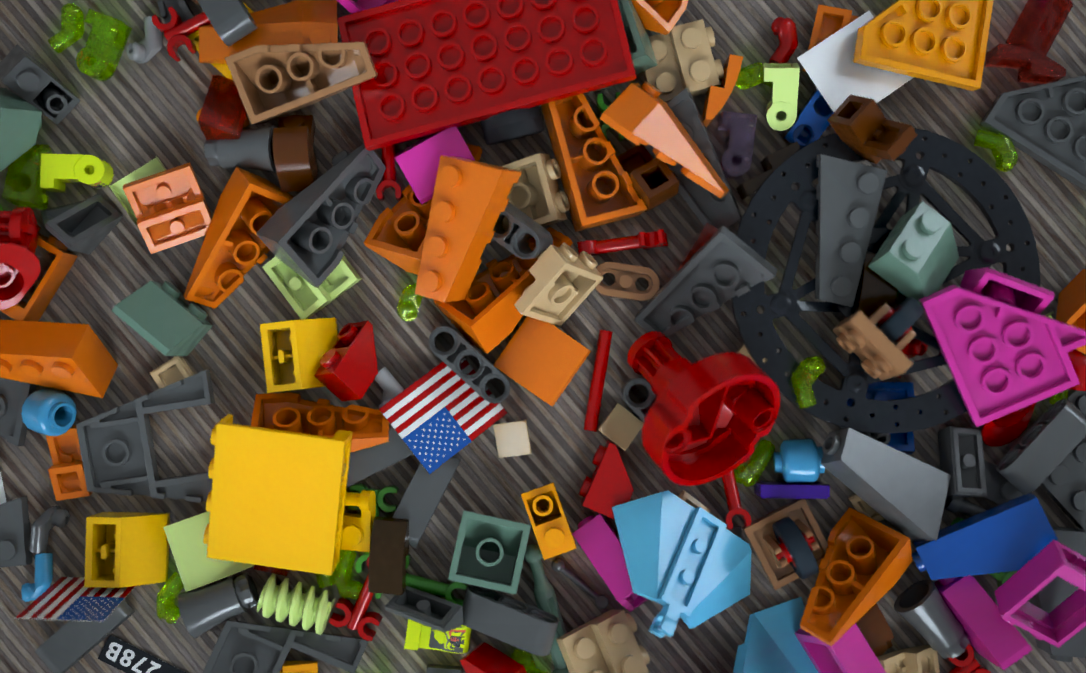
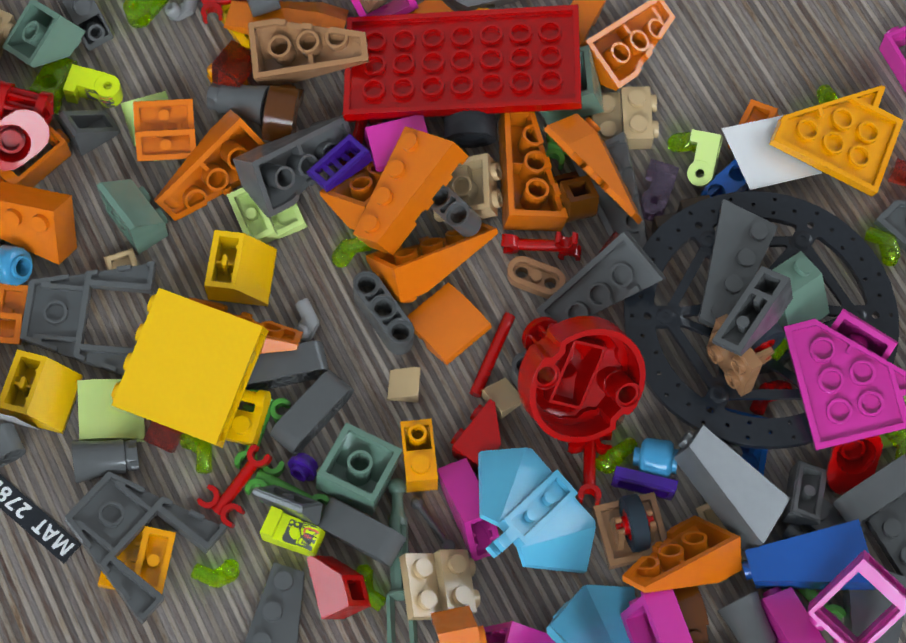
camera: 10 degrees right, 20 degrees down
(166, 599) = (58, 444): clear neon green arm -> none
(295, 604) = (171, 476): yellowish green piece -> none
(343, 578) = (221, 462): clear neon green arm -> none
(351, 362) = (279, 286): red slope -> none
(366, 198) = (348, 145): none -> dark purple slope
(388, 555) = (268, 447): dark brown slope -> none
(429, 559) = (303, 467): none -> dark purple plate
(441, 415) = (346, 347): sticker -> none
(560, 284) = (477, 259): tan plate -> none
(718, 96) = (653, 148): orange slope -> none
(788, 39) = (720, 118): red arm -> none
(804, 378) = (671, 376): clear neon green arm -> none
(868, 131) = (766, 189): reddish brown brick -> none
(894, 311) = (755, 311): none -> dark grey slope

